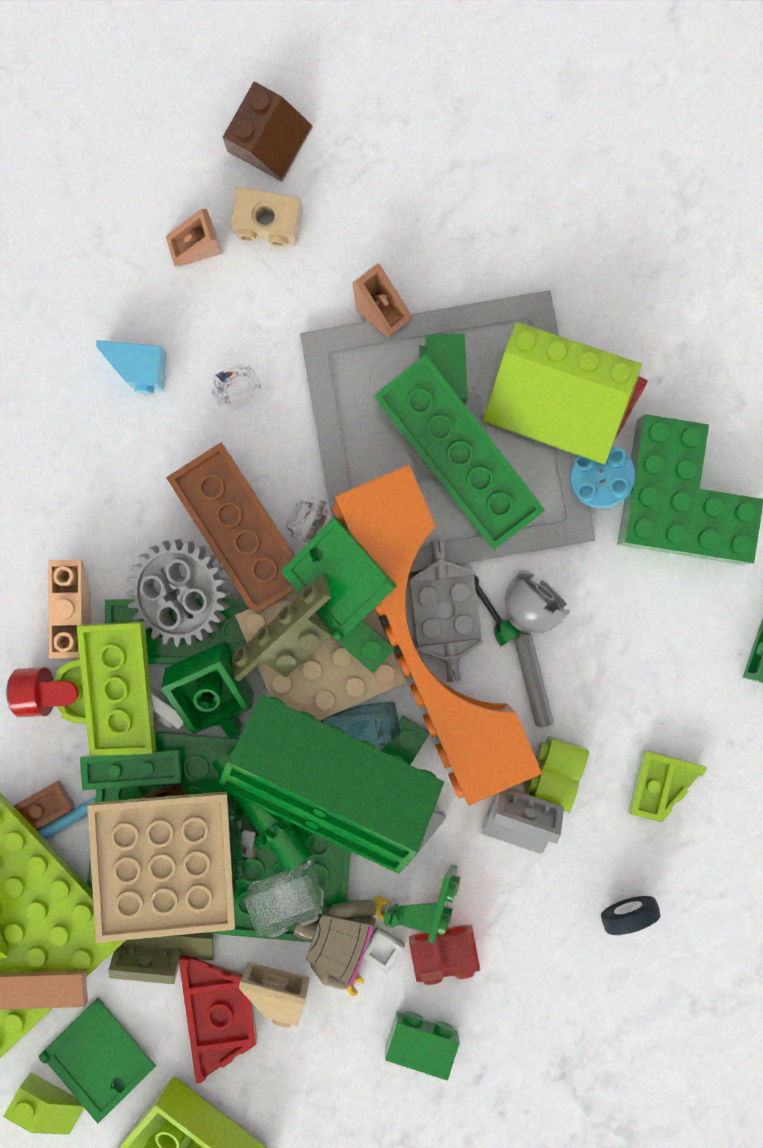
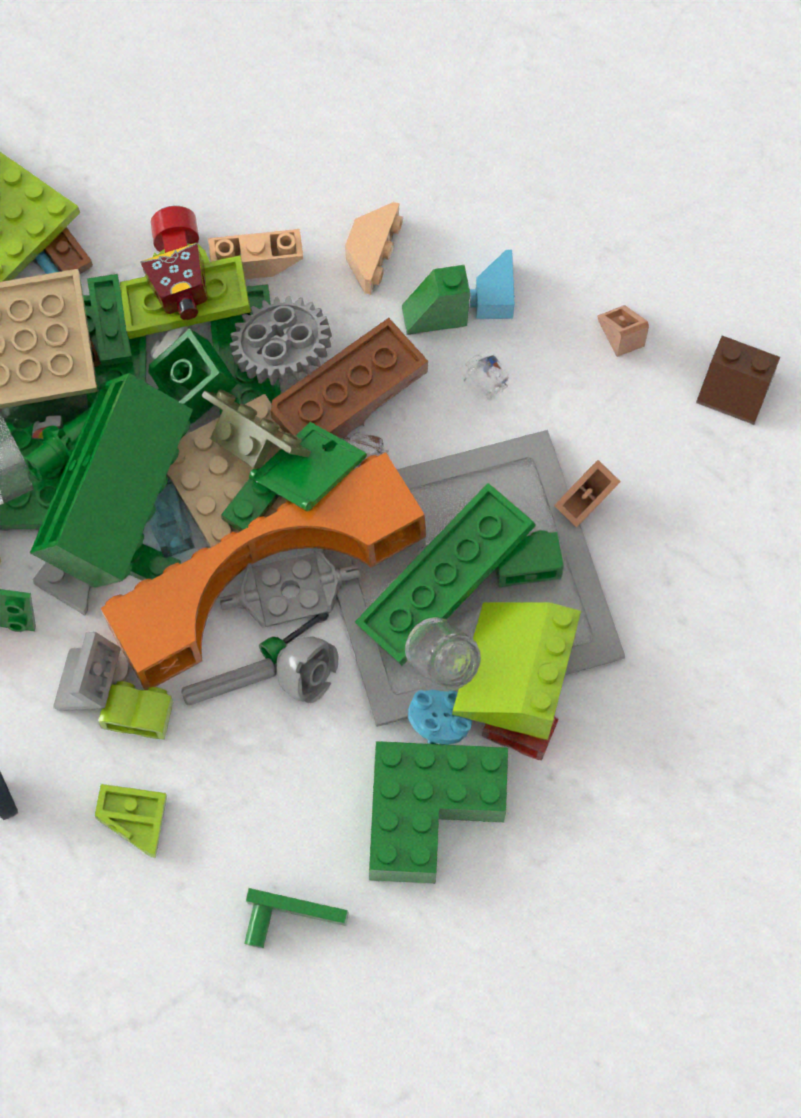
camera: 85 degrees right, 20 degrees down
(69, 488) = (371, 244): none -> light nougat slope
(103, 695) = (178, 280): none -> dark red torso
(149, 424) = (438, 301): none -> green slope
(252, 204) = (657, 370): tan brick -> none
(548, 465) = (443, 653): none -> clear piece

